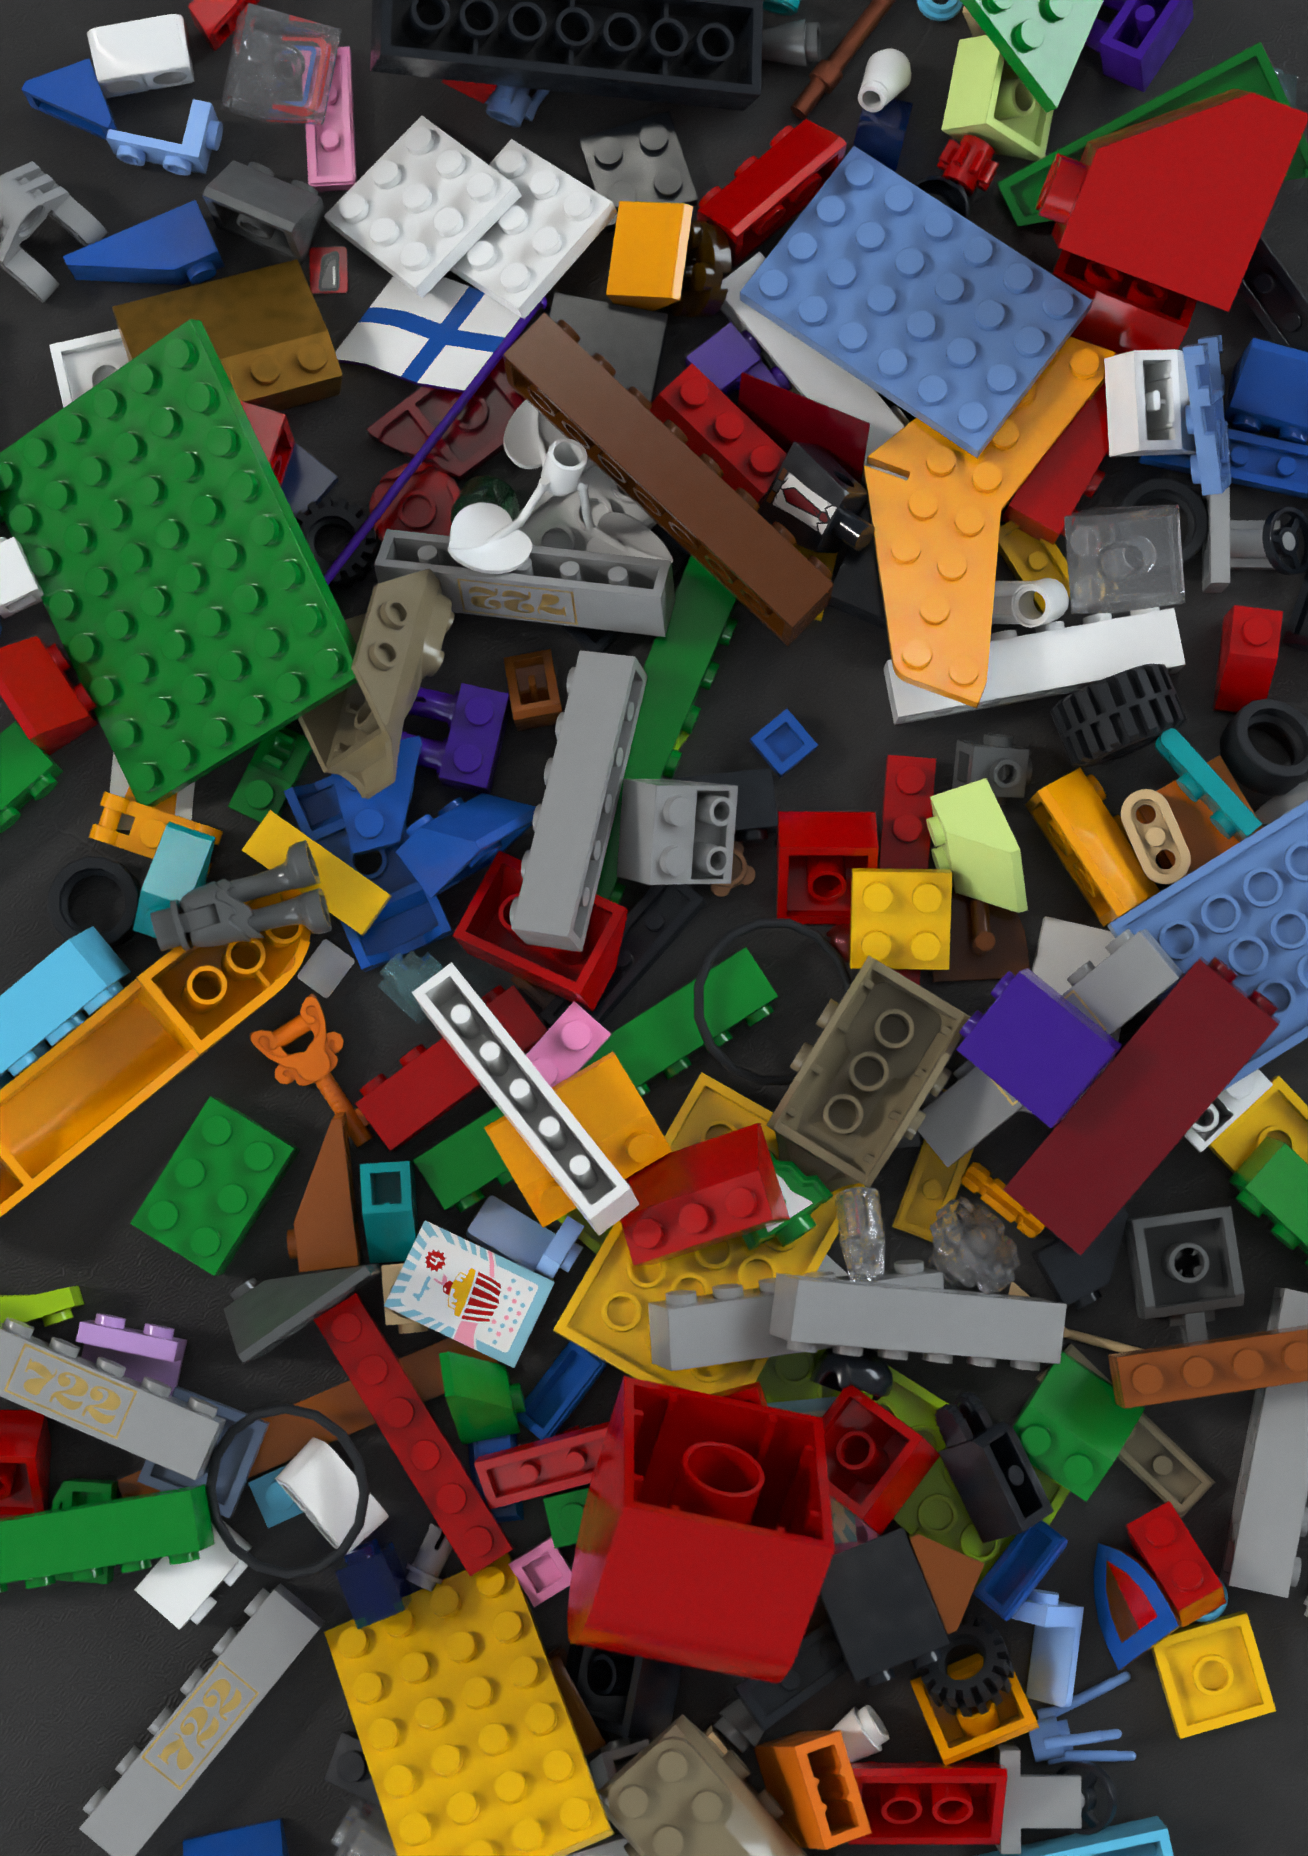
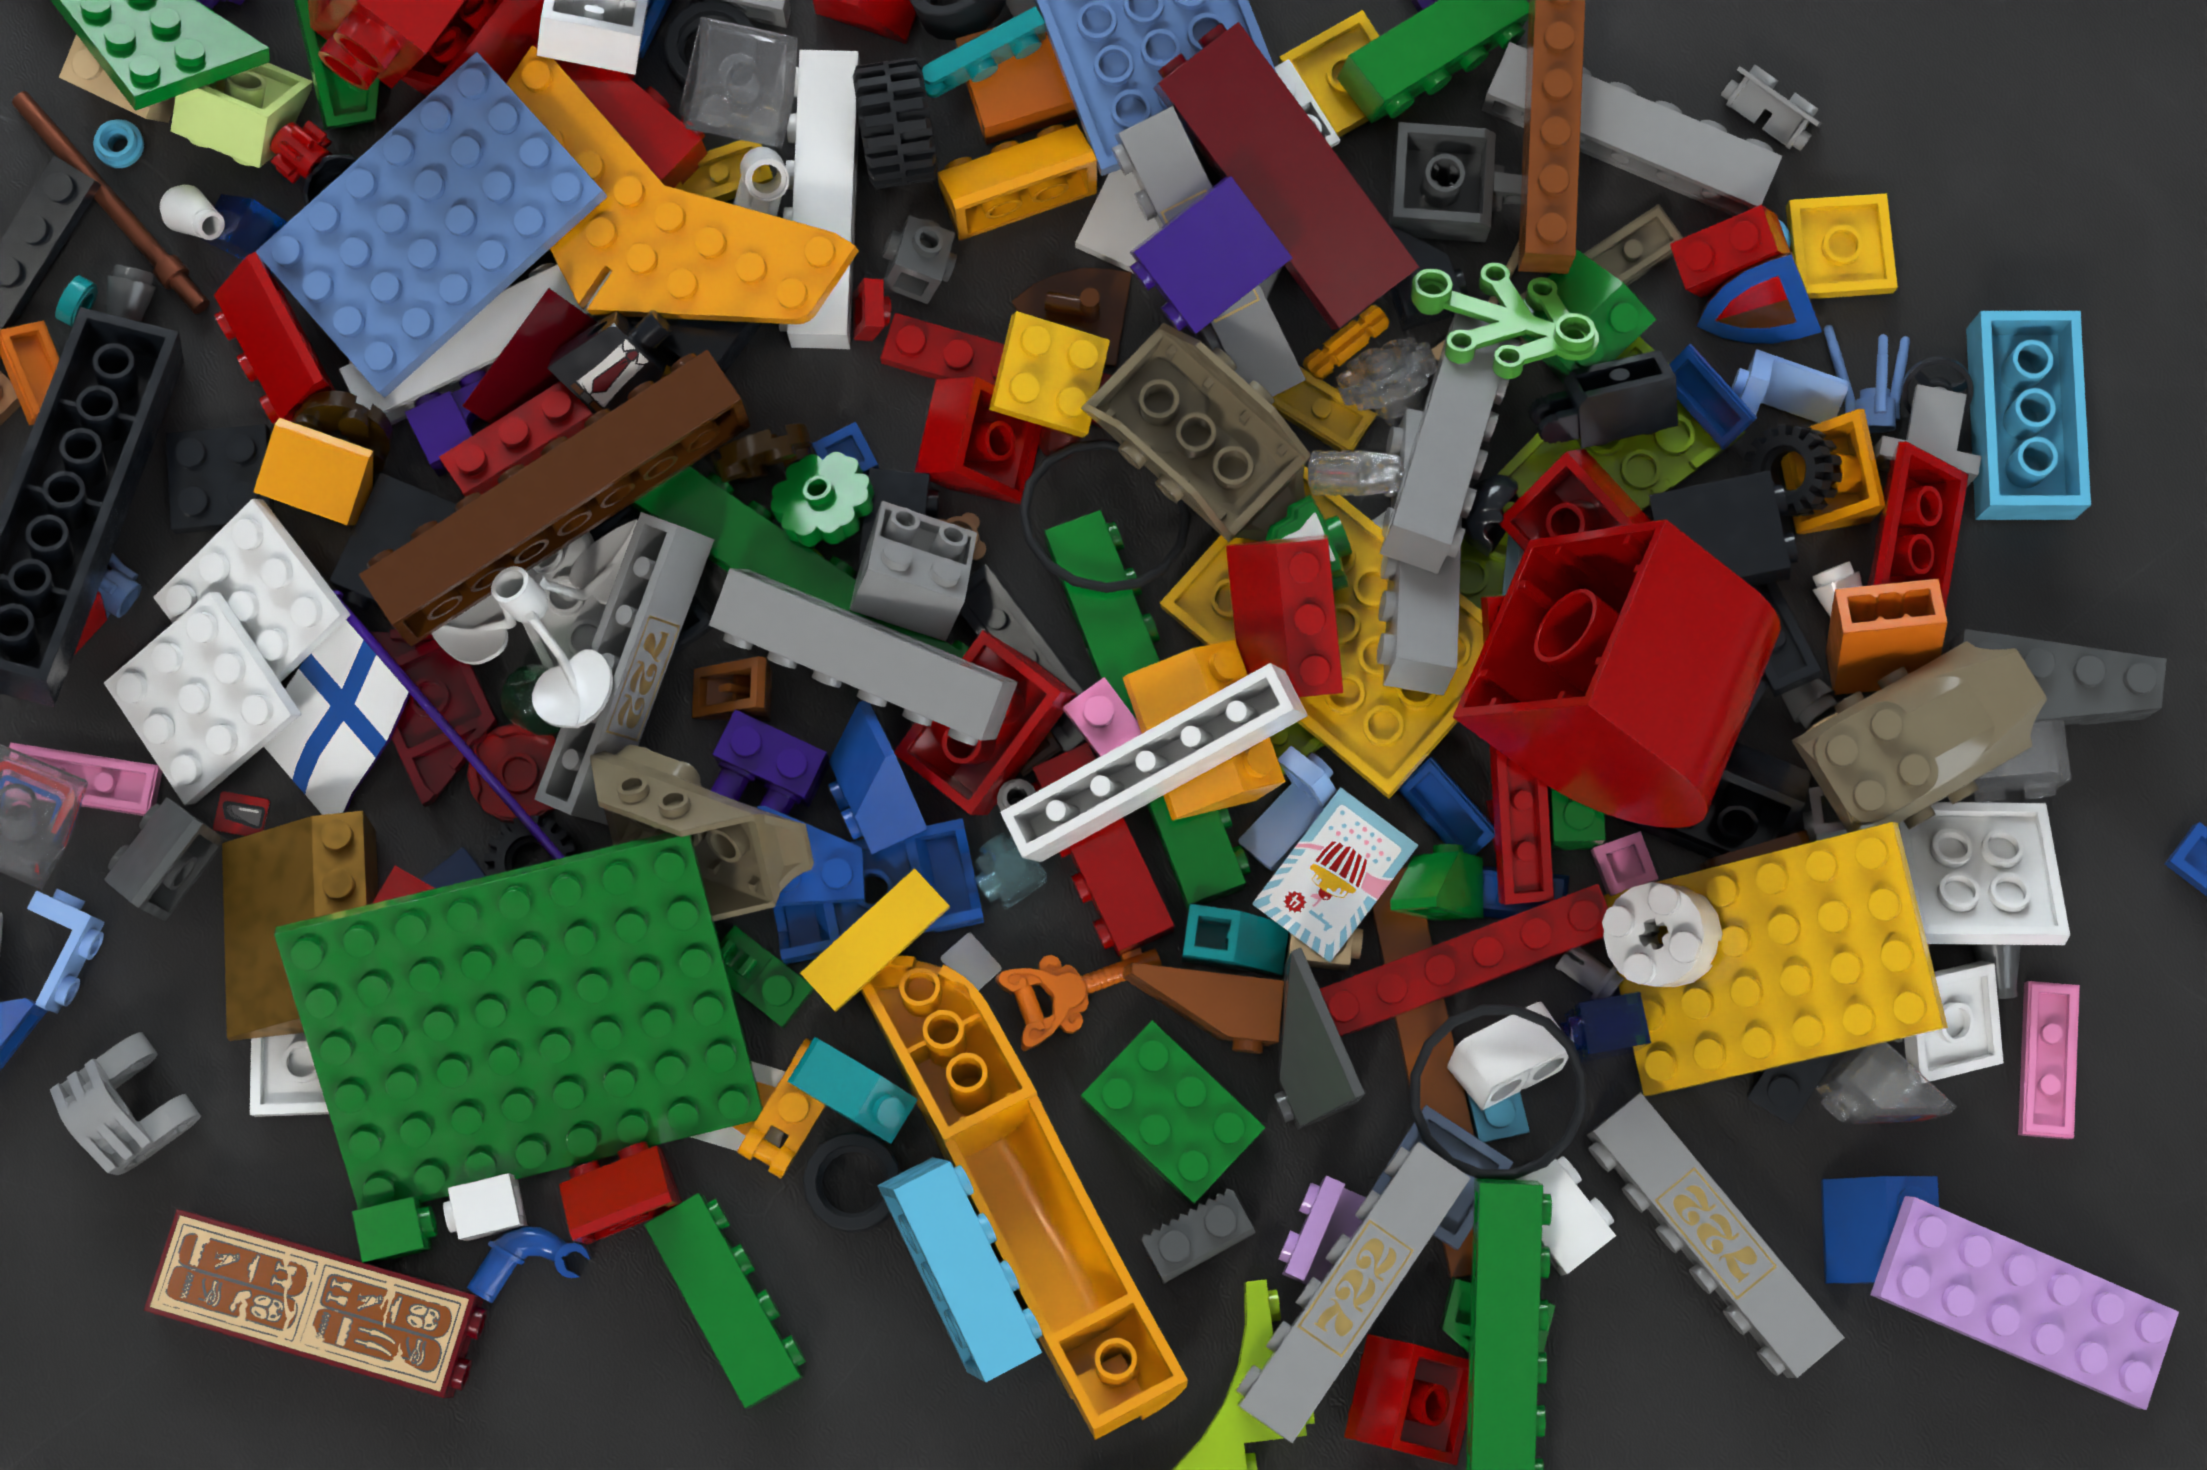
camera: 80 degrees left, 5 degrees down
(106, 1233) = (1197, 1236): none -> dark grey brick
(157, 251) = (178, 981): blue slope -> none
(219, 916) = (900, 1040): dark grey piece -> none
(451, 1599) = (1633, 931): none -> white brick
(485, 964) = (1013, 789): none -> light grey pin
(729, 730) = (822, 499): none -> green plant
(762, 664) = (750, 455): none -> dark brown plate
(932, 735) = (870, 309): none -> red plate
(948, 1577) = (1705, 461): dark orange slope -> none
(977, 846) = (994, 279): yellowish green slope -> none
(1048, 1355) = (1565, 334): none -> bright green plant
(1155, 836) = (1021, 108): tan plate -> none

